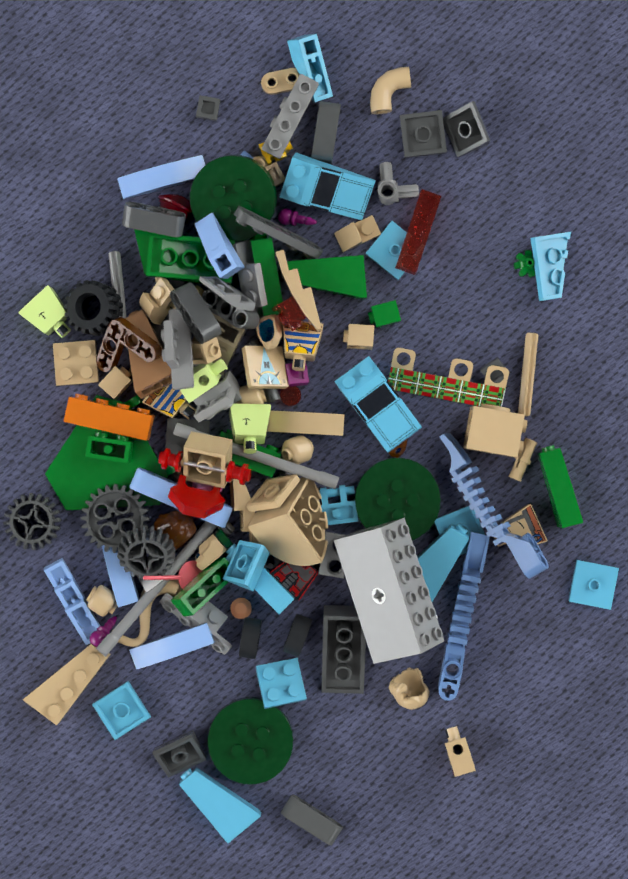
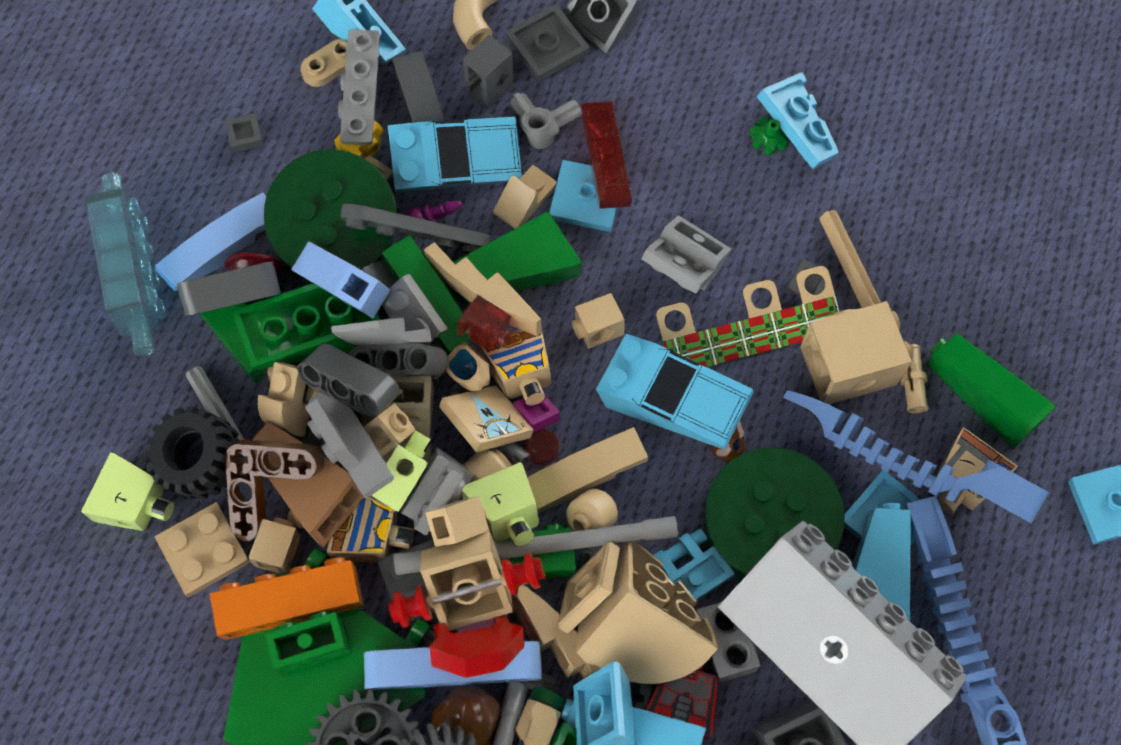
camera: 30 degrees left, 20 degrees down
(100, 168) = (124, 264): none -> clear light blue brick
(217, 426) = (457, 521): none -> tan brick
(374, 142) = (488, 71): none -> dark grey brick
(384, 314) = (618, 276): green brick -> none
(432, 321) = (687, 255): none -> light grey brick

